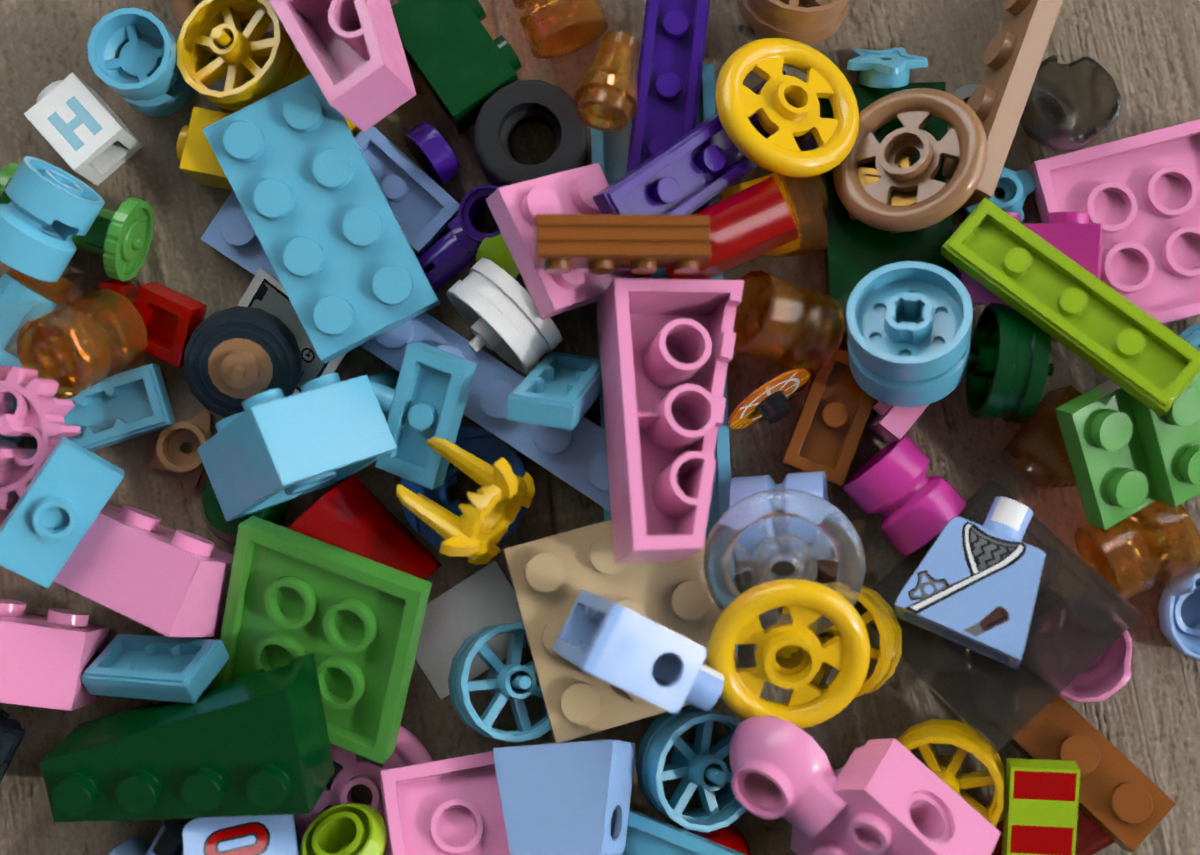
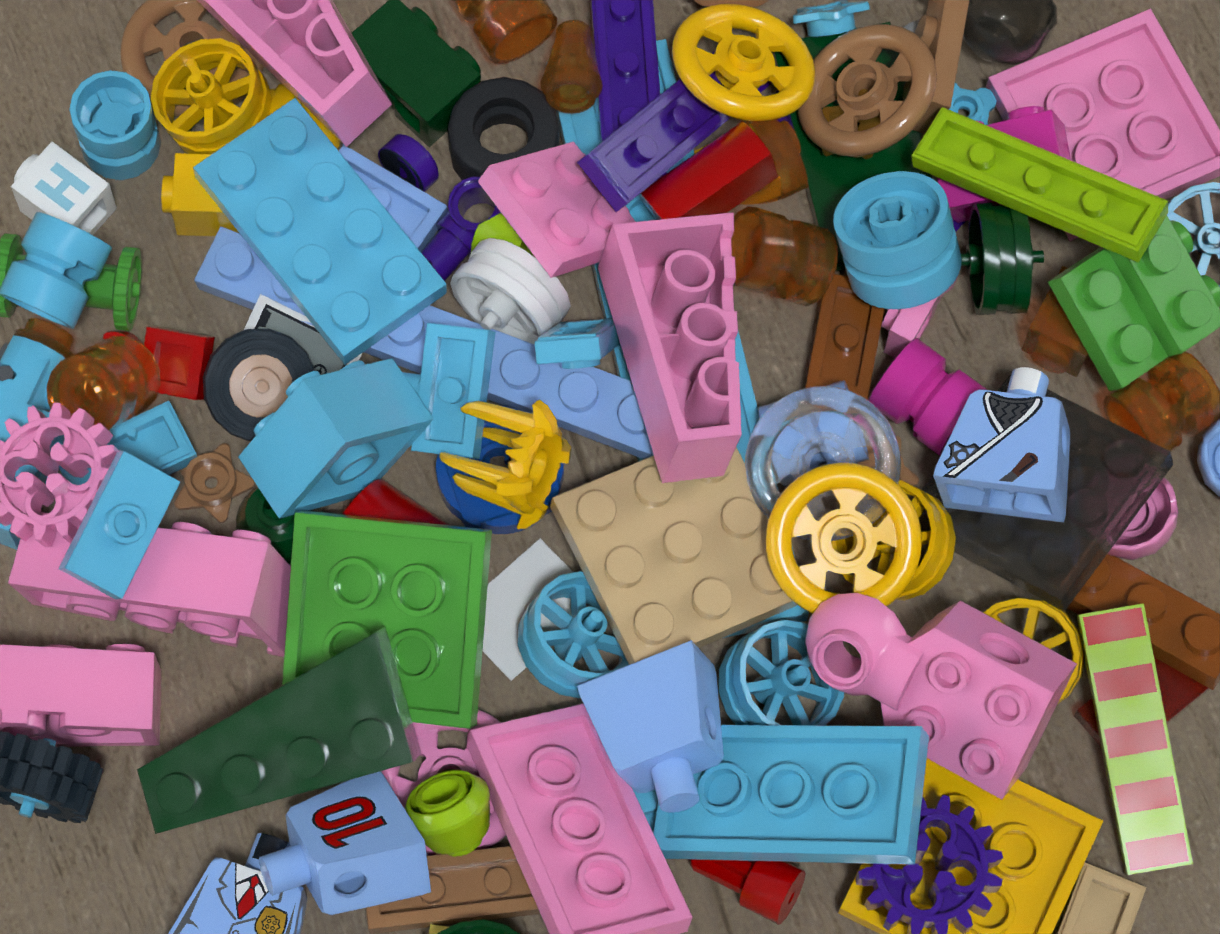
camera: 15 degrees left, 15 degrees down
(155, 667) = (226, 678): medium azure plate -> none
(621, 242) = (613, 190): dark orange piece -> none
(637, 655) = (698, 549): light blue torso -> none
(769, 400) = (780, 330): piece -> none

